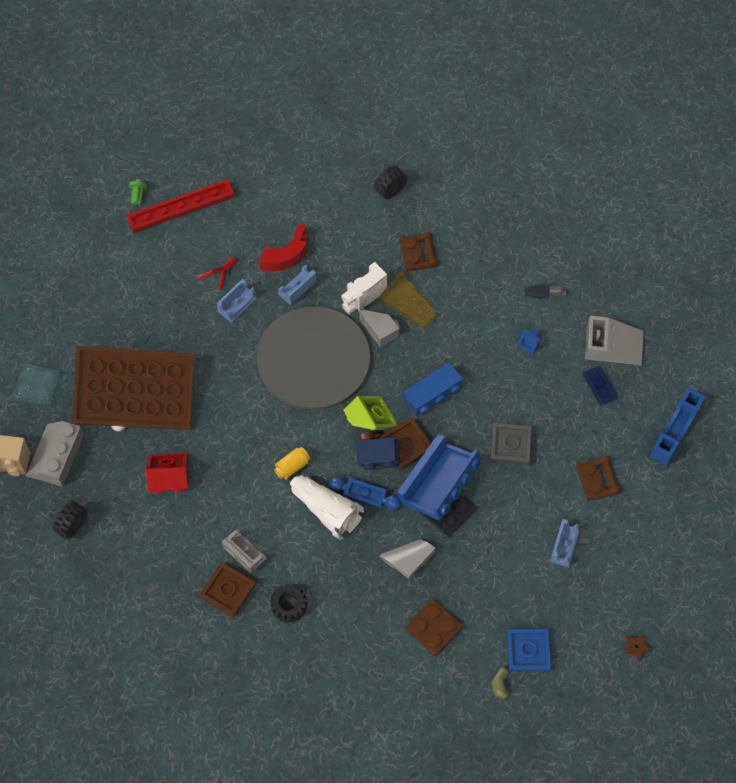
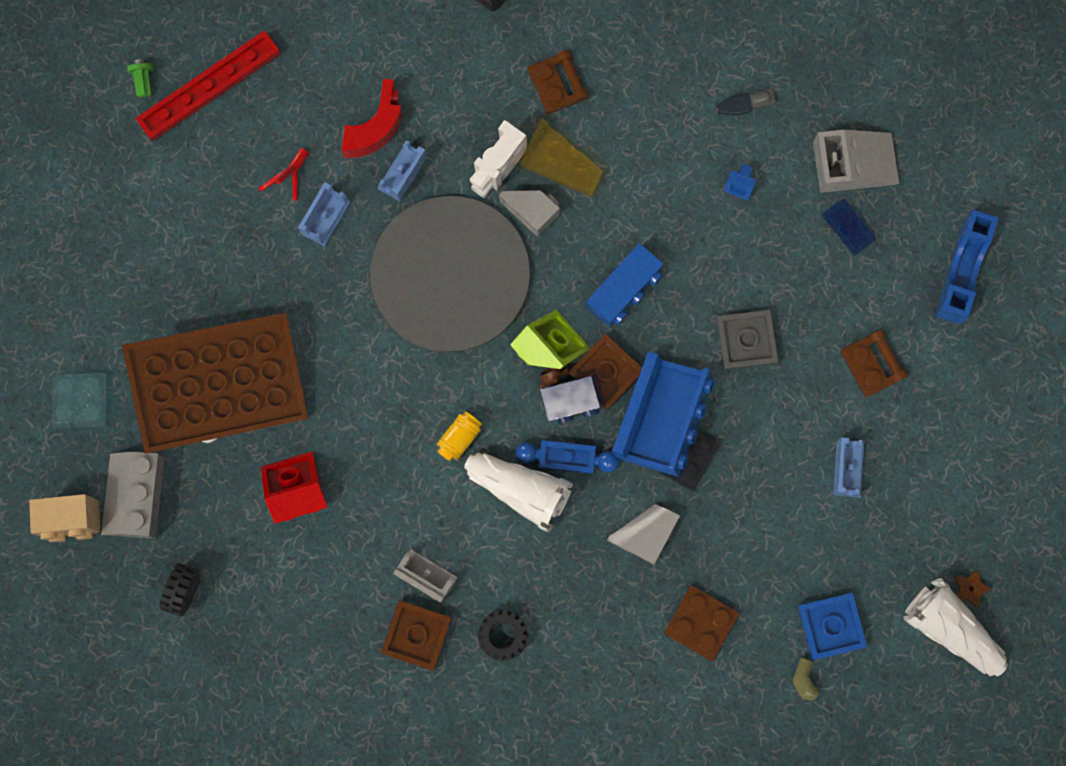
camera: 10 degrees left, 15 degrees up
(617, 668) = (953, 625): none -> white cone

